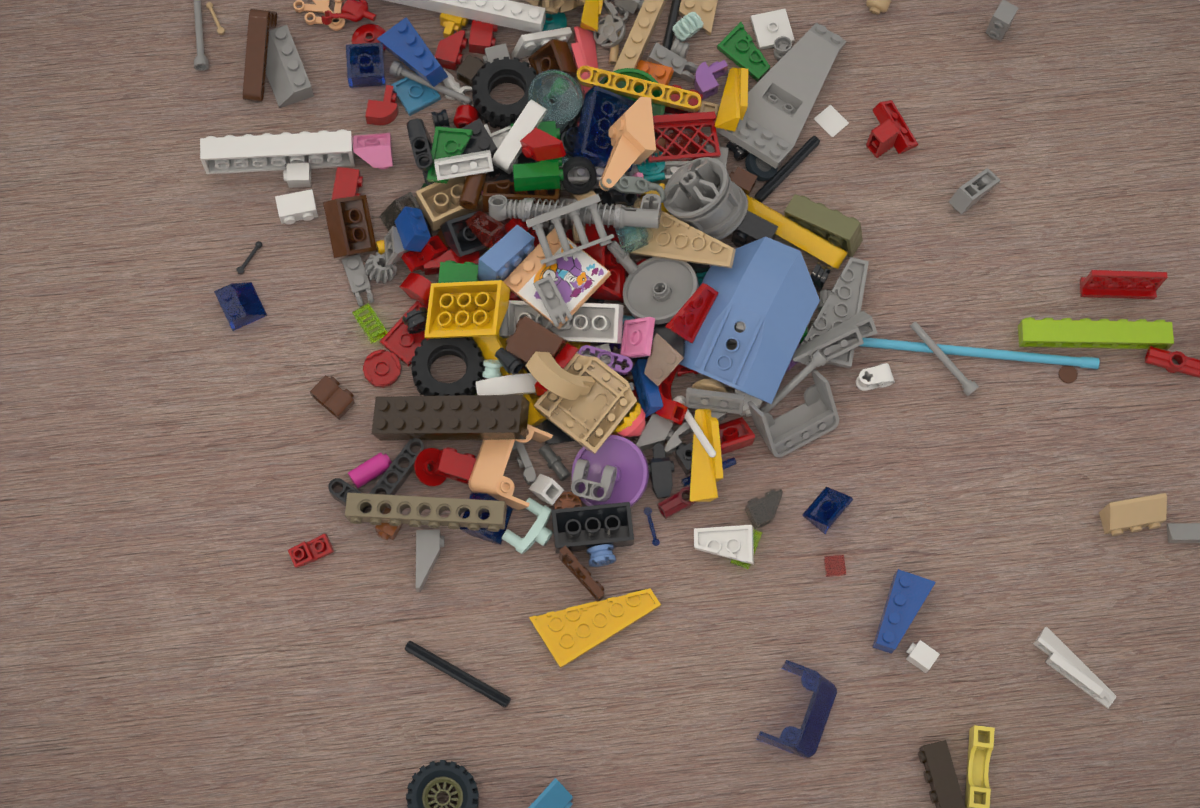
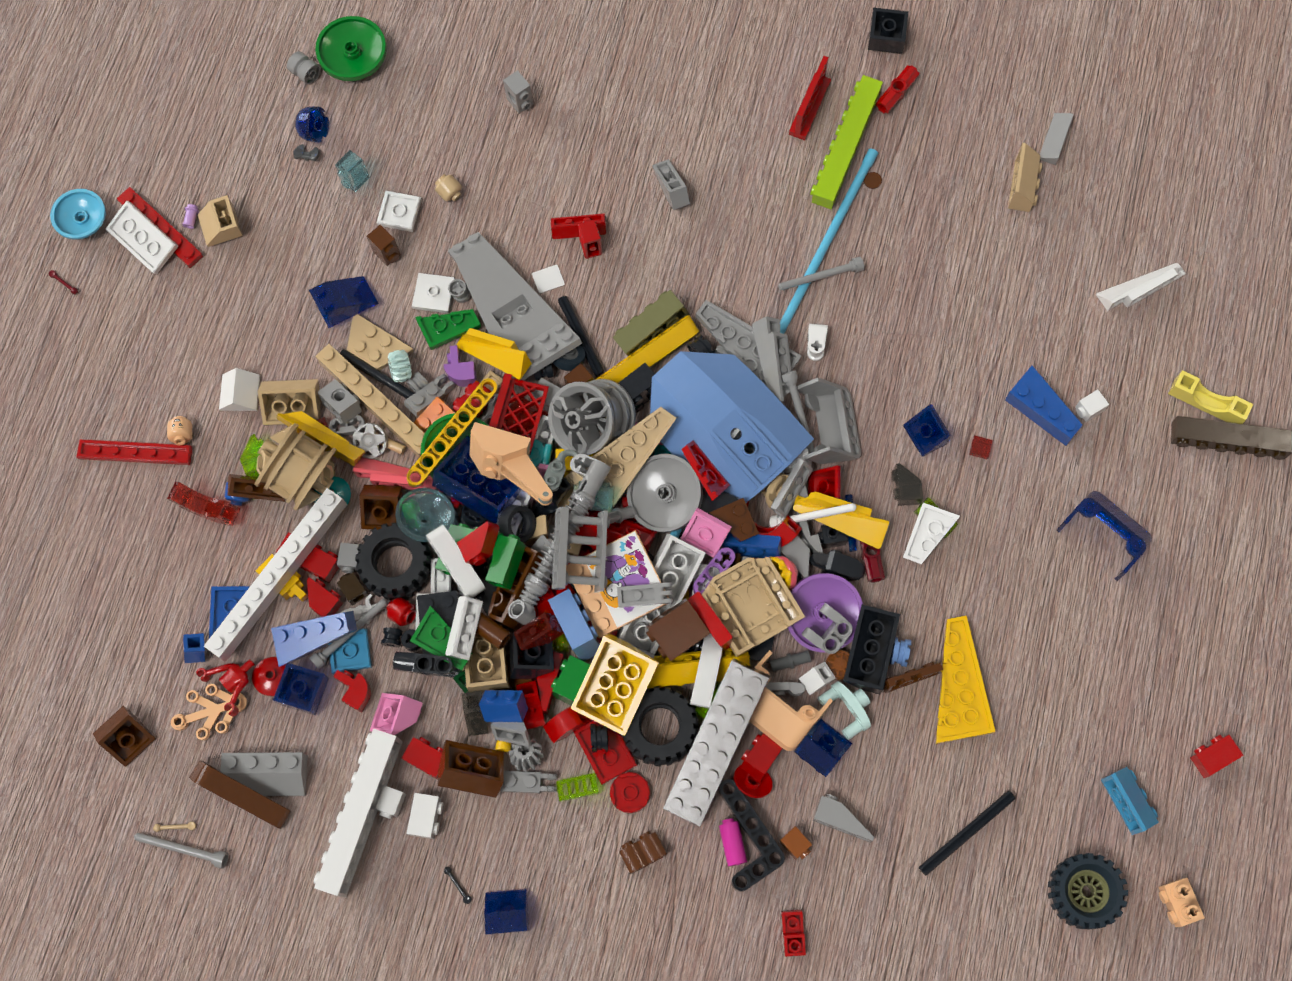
camera: 60 degrees left, 0 degrees up
(358, 501) = (830, 731): dark tan brick -> none
(492, 368) = (682, 682): light aqua wheel -> none
(509, 361) = (684, 661): black cone -> none
(530, 43) = (352, 510): white wing -> none
(556, 379) = (724, 623): tan arch -> none
(647, 511) = (868, 593): clear blue hinge -> none

